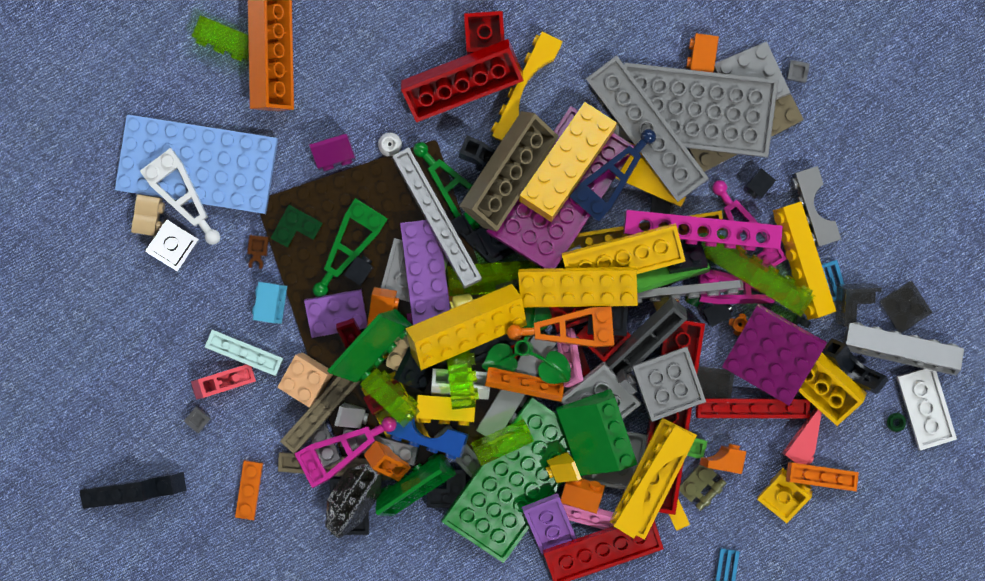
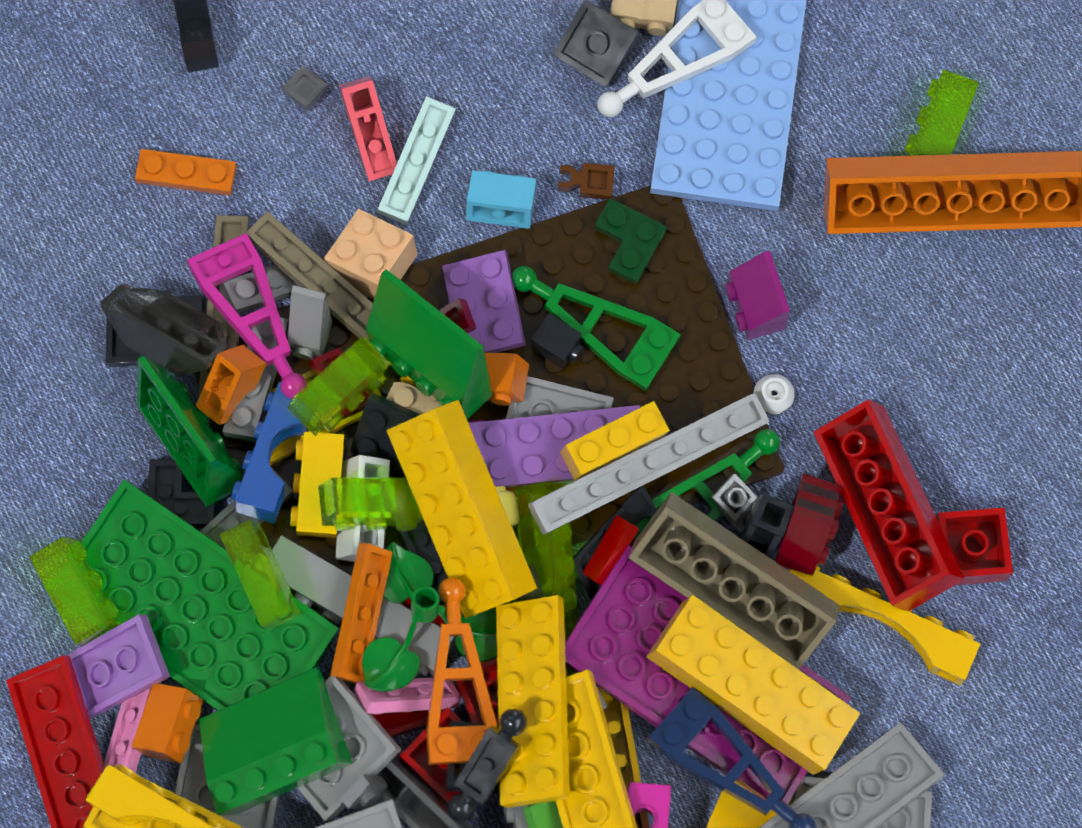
camera: 90 degrees right, 15 degrees down
(425, 238) = (614, 441): none -> yellow brick
(457, 168) = (734, 501): none -> light grey slope
(474, 124) = (810, 525): none -> dark red brick
(487, 241) = (610, 549): none -> red tile
(506, 548) = (75, 590): none -> clear neon green brick
(563, 468) = (212, 683): yellow slope -> none
(616, 312) = (487, 764): none -> black plate

